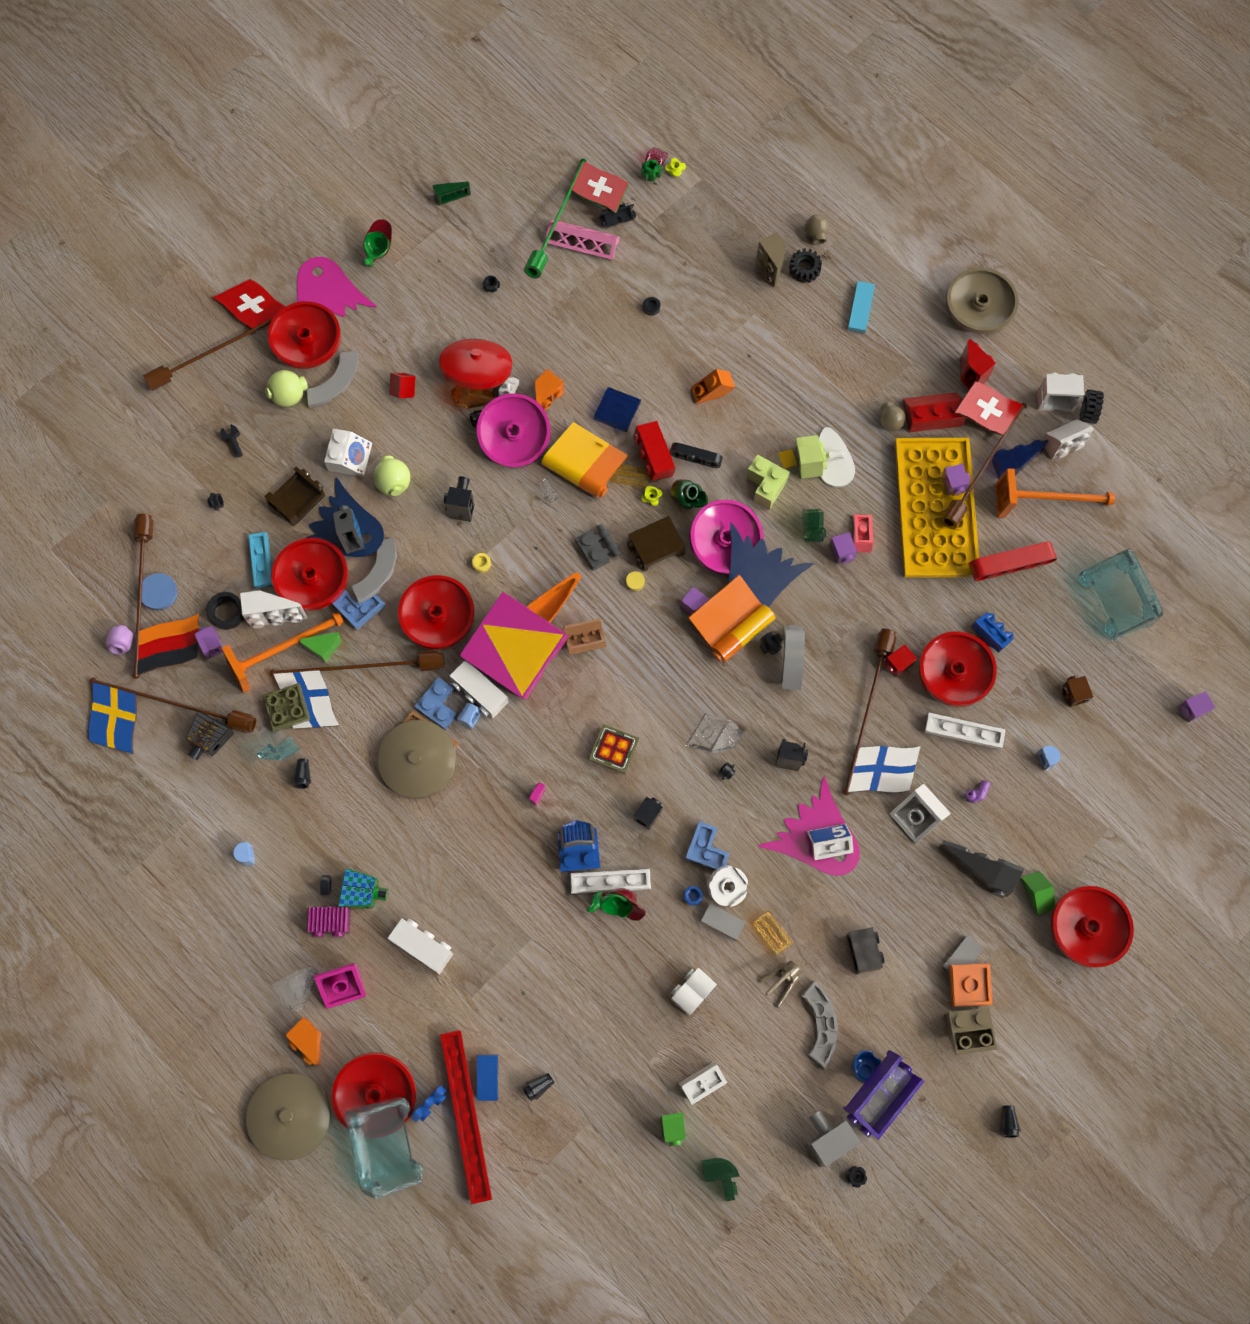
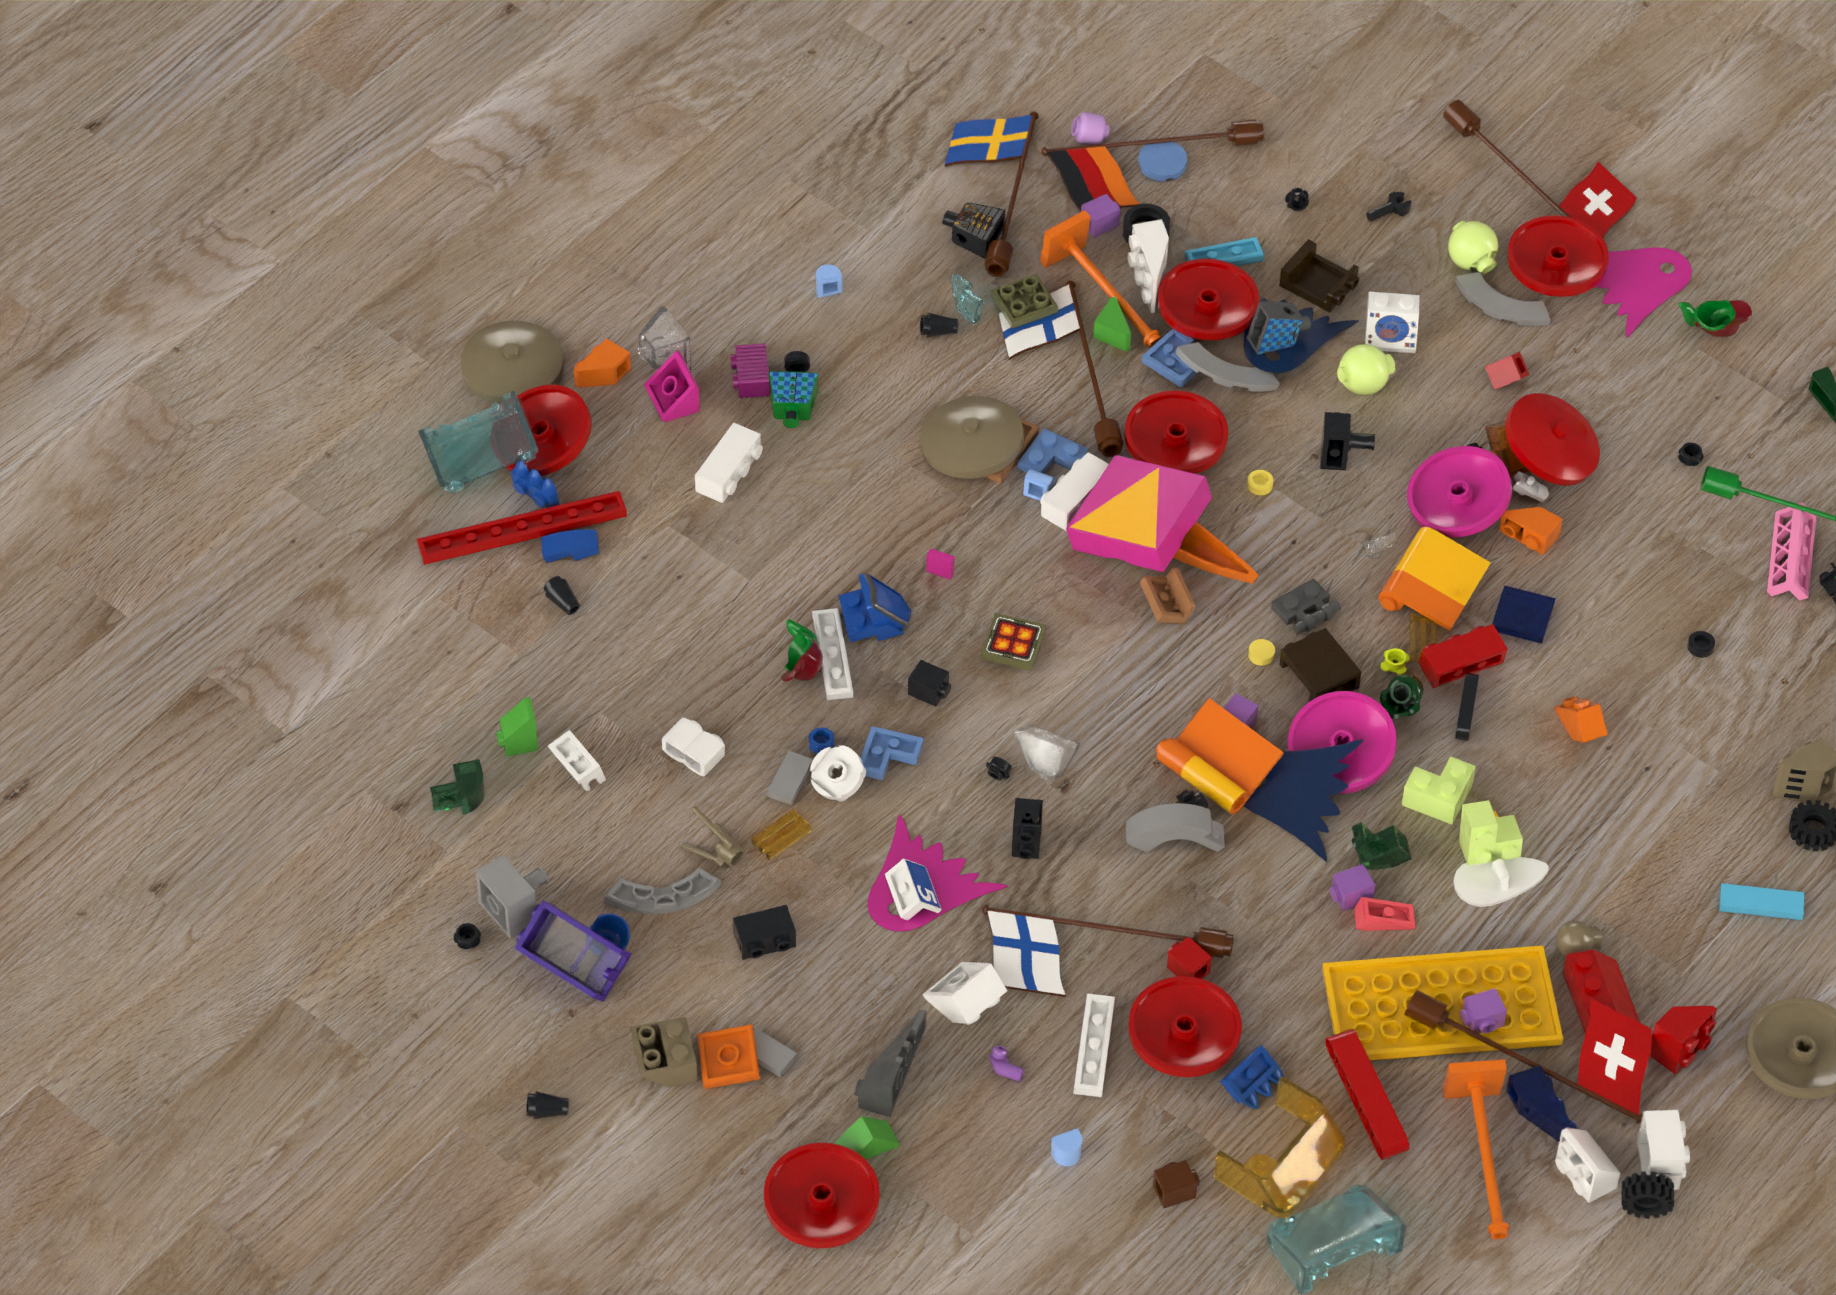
camera: 85 degrees right, 20 degrees down
(1082, 624) = (1285, 1183): none -> clear yellow windscreen

